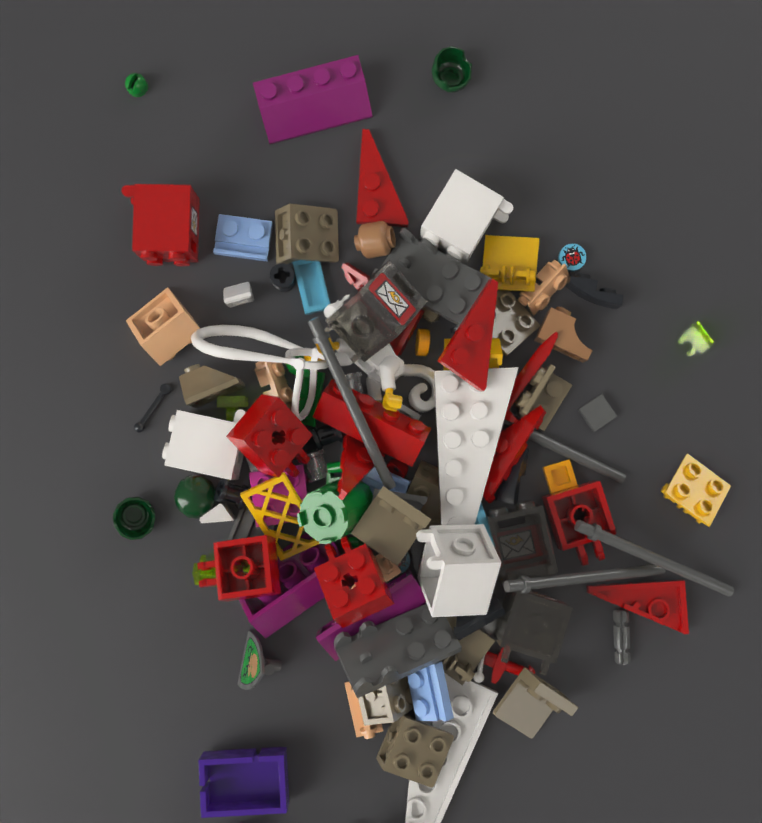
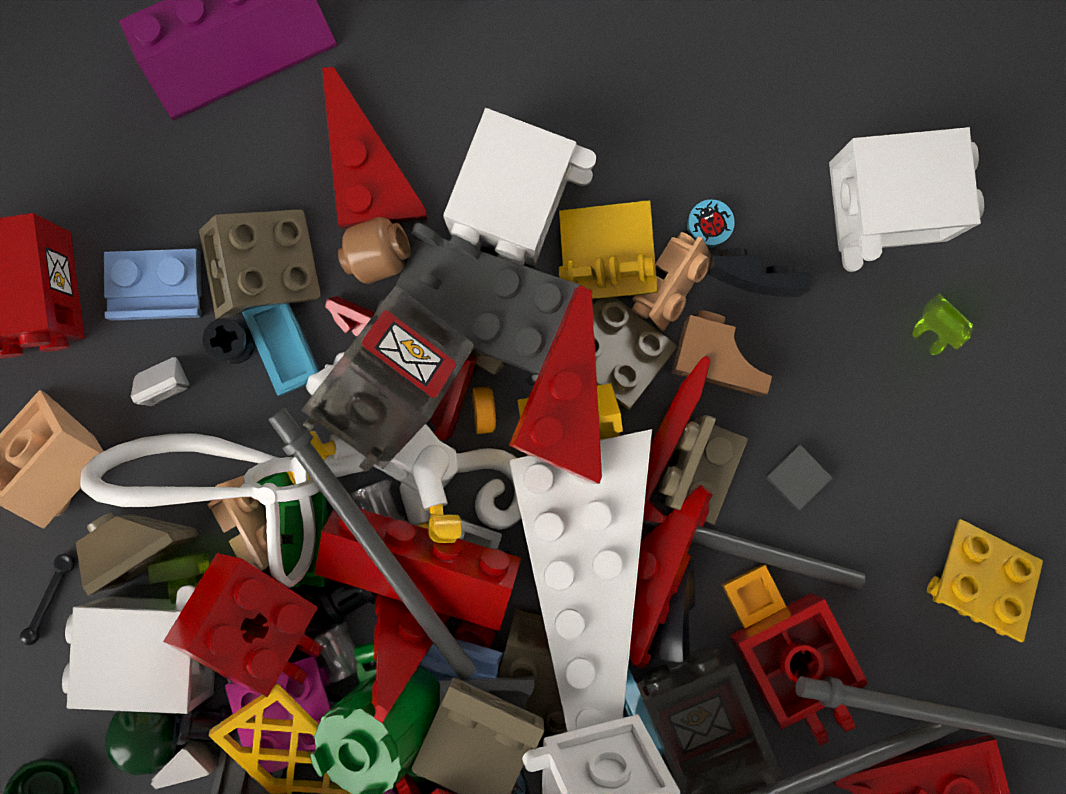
camera: 10 degrees left, 0 degrees up
(686, 258) = (904, 191): none -> white container

